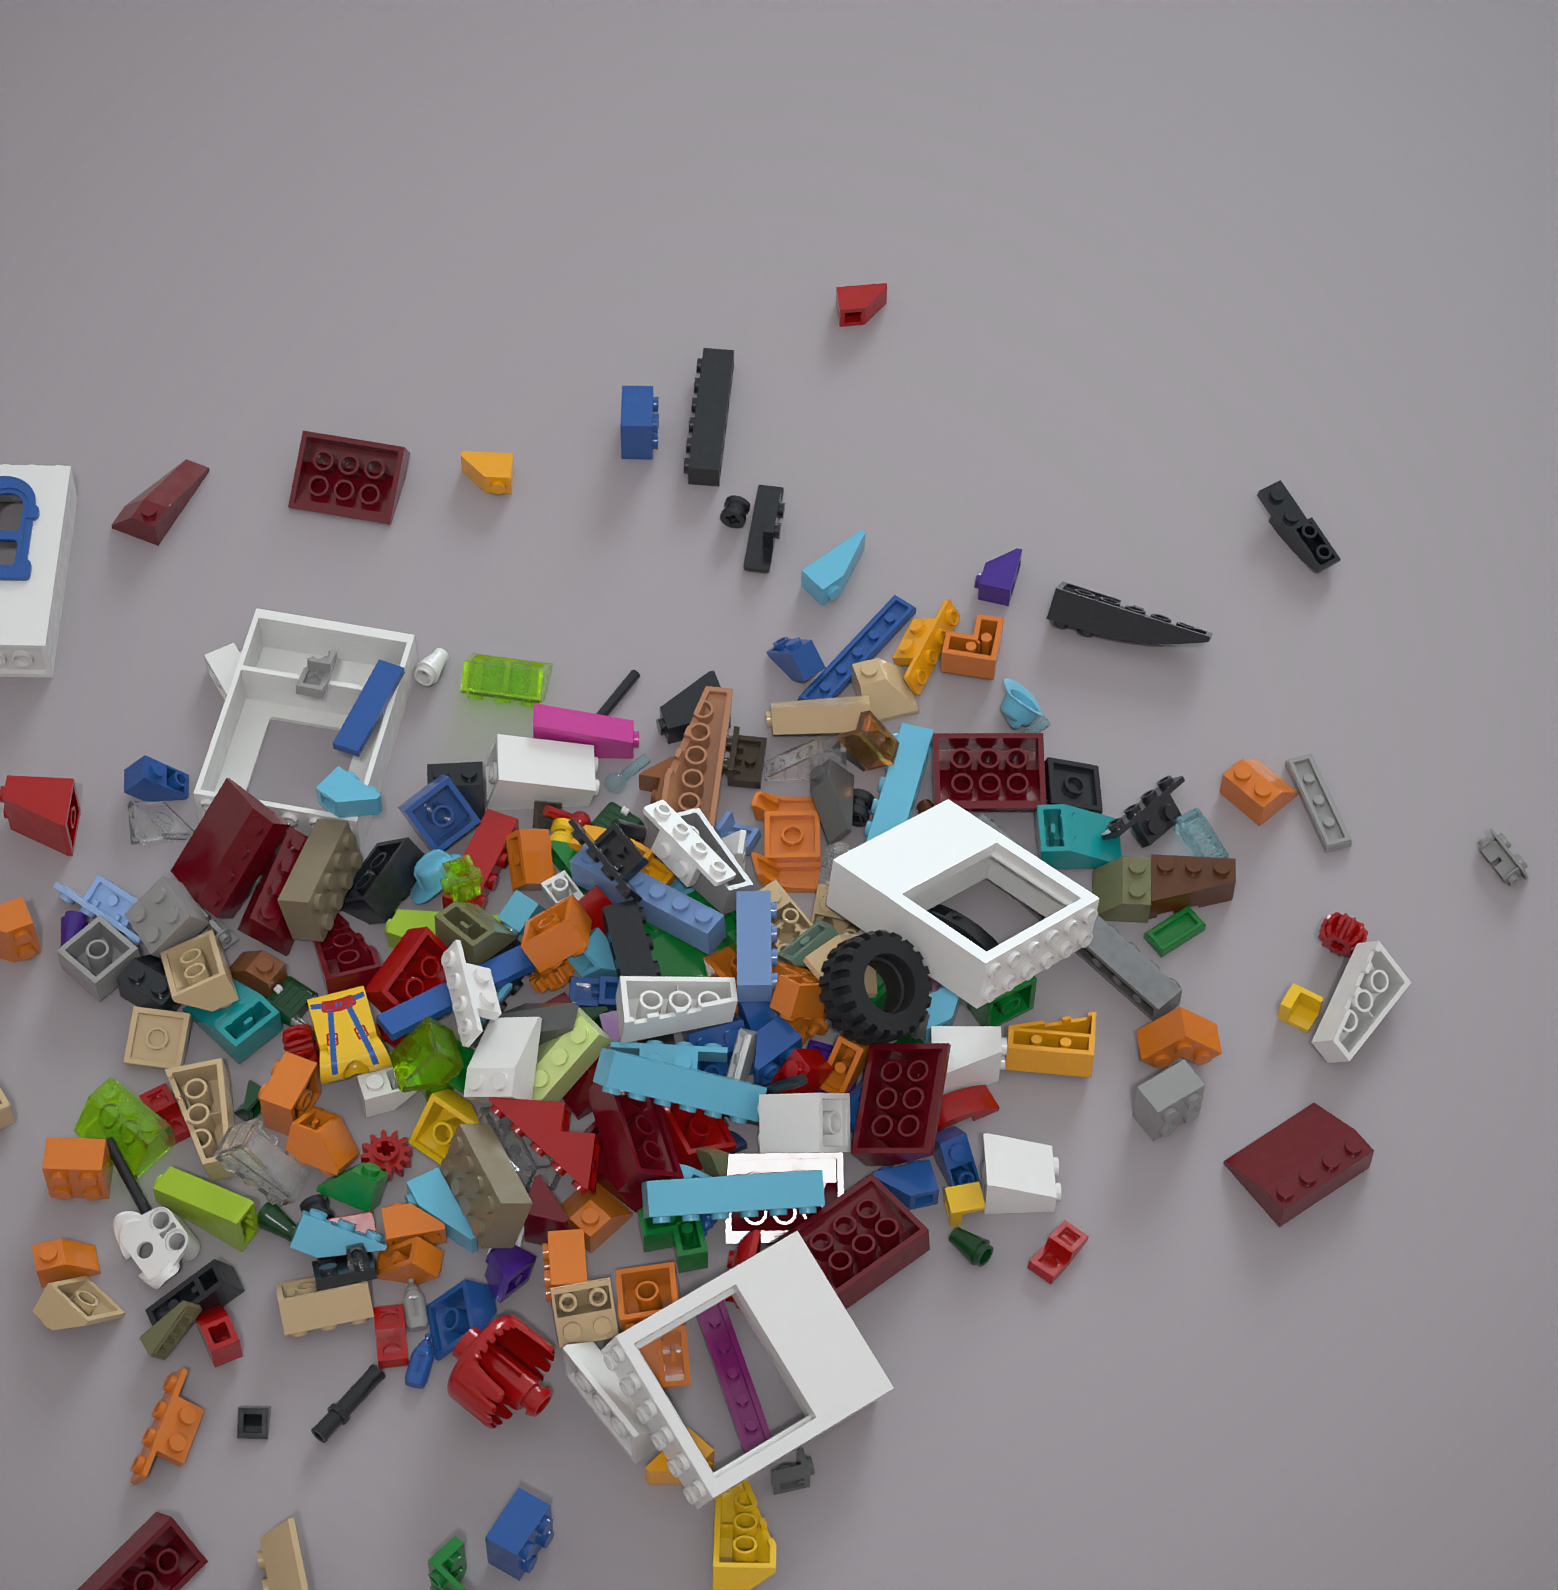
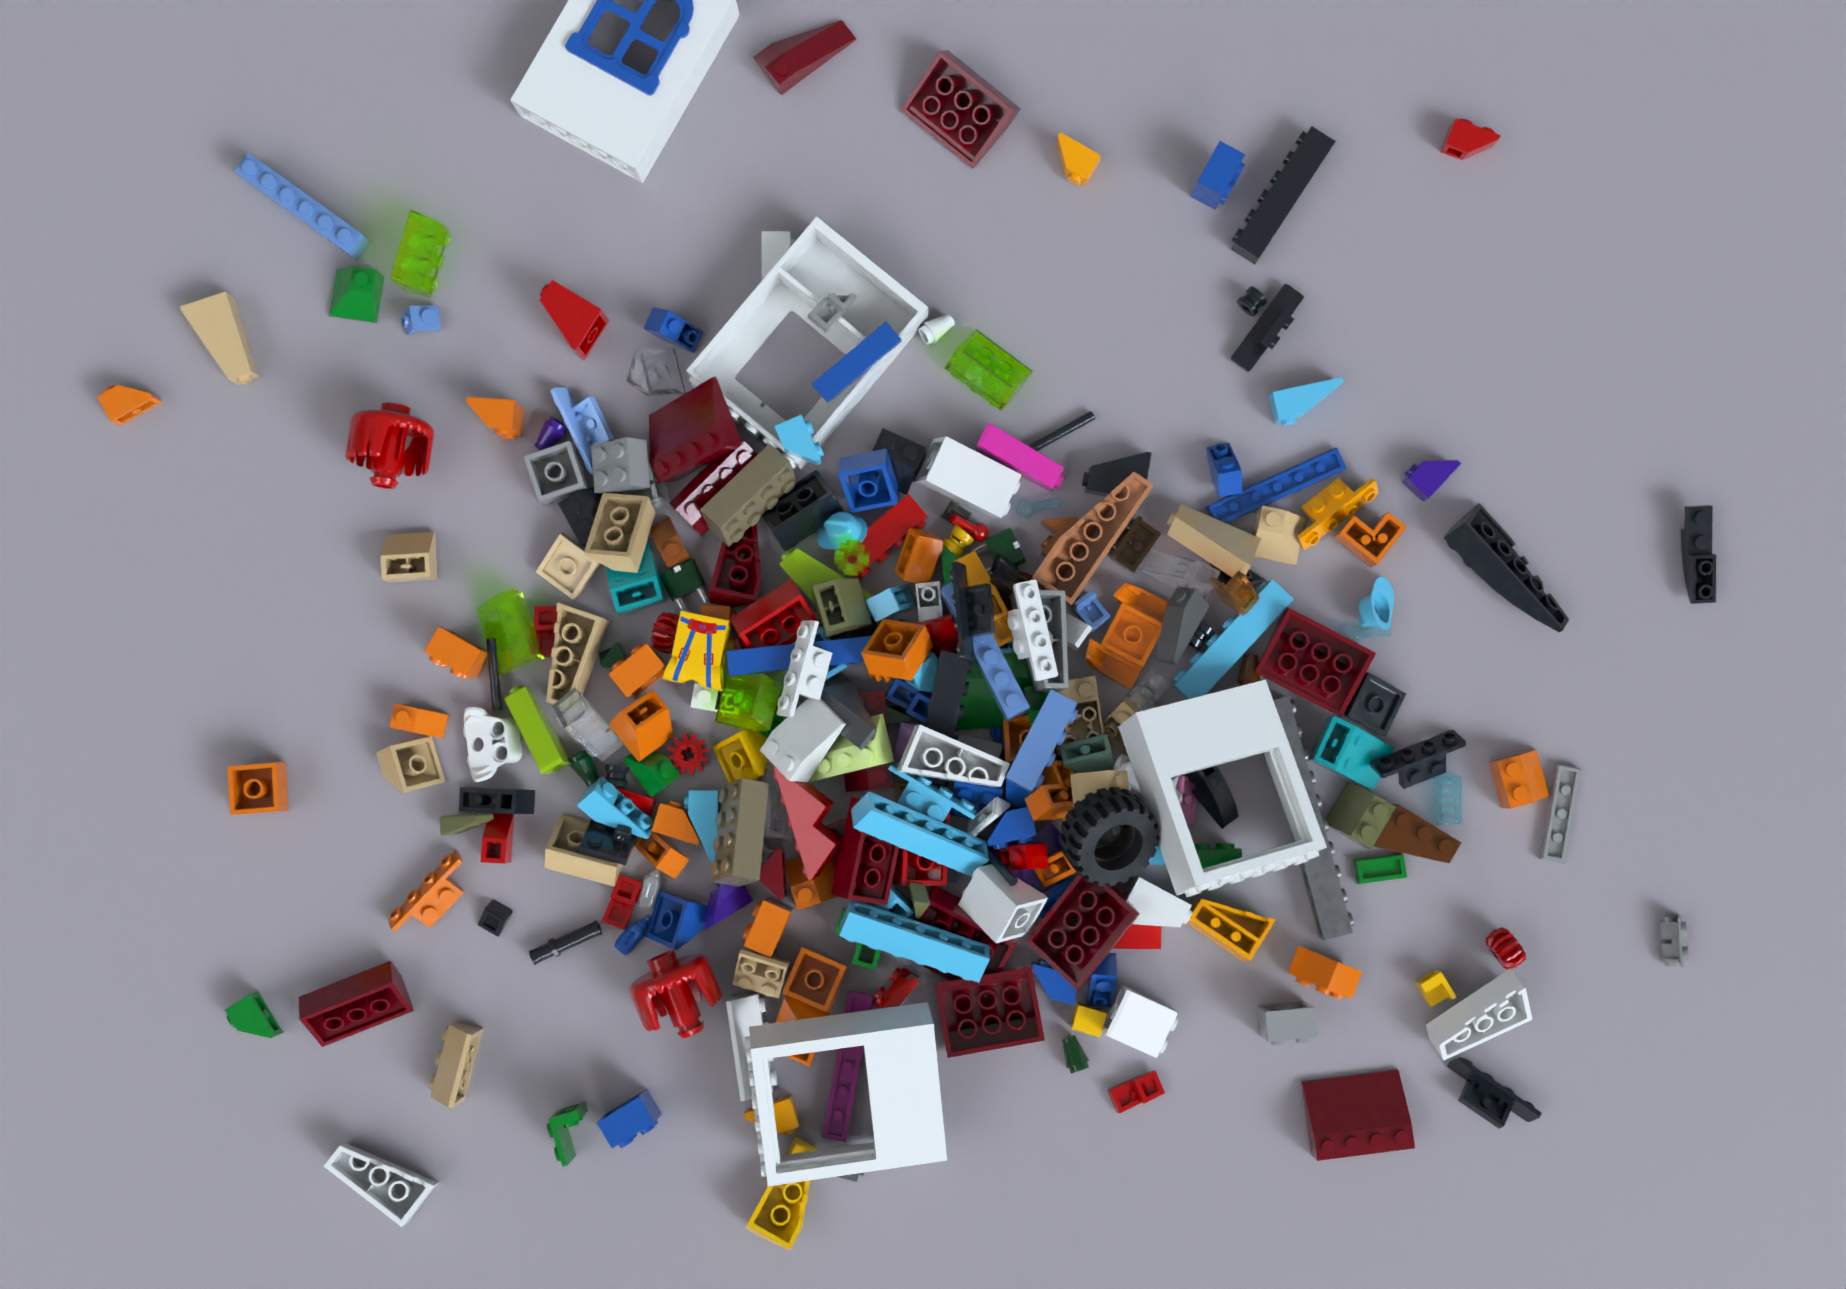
camera: 30 degrees right, 30 degrees up
(1419, 1075) = (1489, 1097): none -> black bracket

